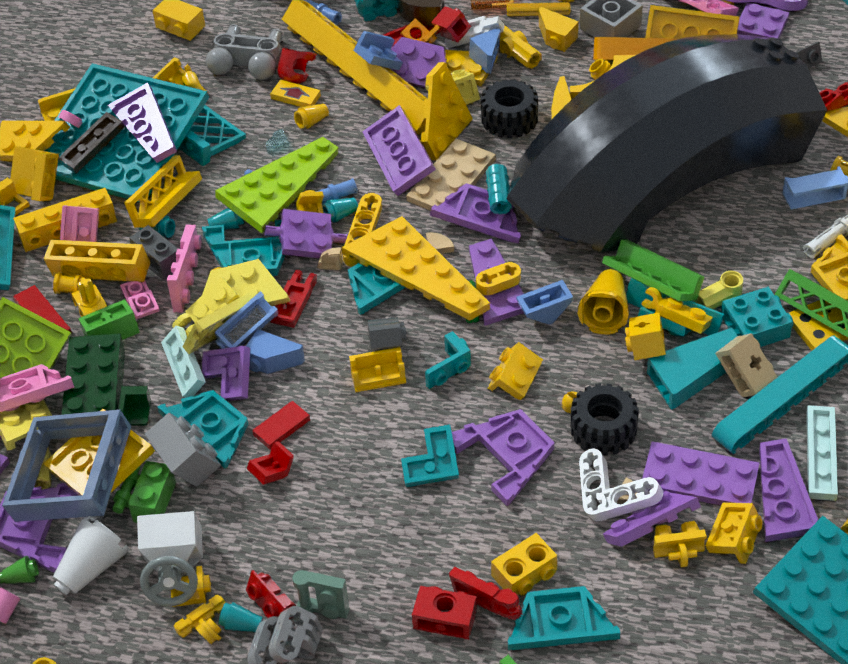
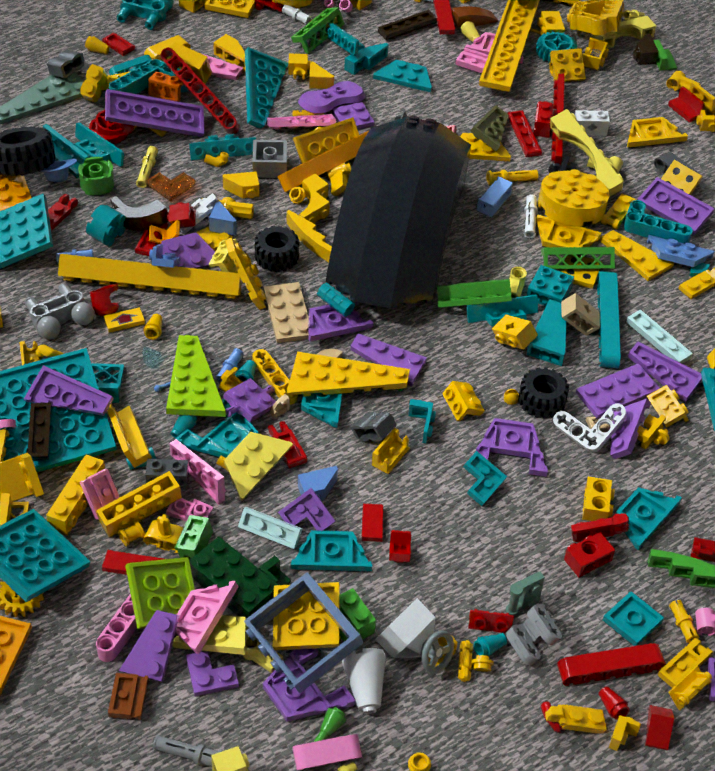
camera: 50 degrees left, 0 degrees up
(183, 449) = (350, 572): light grey brick -> none
(204, 329) = (273, 488): light yellow wing -> none
(216, 295) = (249, 482): light yellow hinge -> none
(245, 322) = (286, 477): light blue window -> none
(398, 150) = (242, 314): medium lavender plate -> none
(498, 278) = (399, 353): yellow beam -> none
(532, 9) = (213, 178): yellow axle -> none
(546, 302) = (439, 347): medium blue slope -> none
(605, 304) = (469, 328): yellow cone -> none
(676, 311) = (512, 308): yellow plate -> none

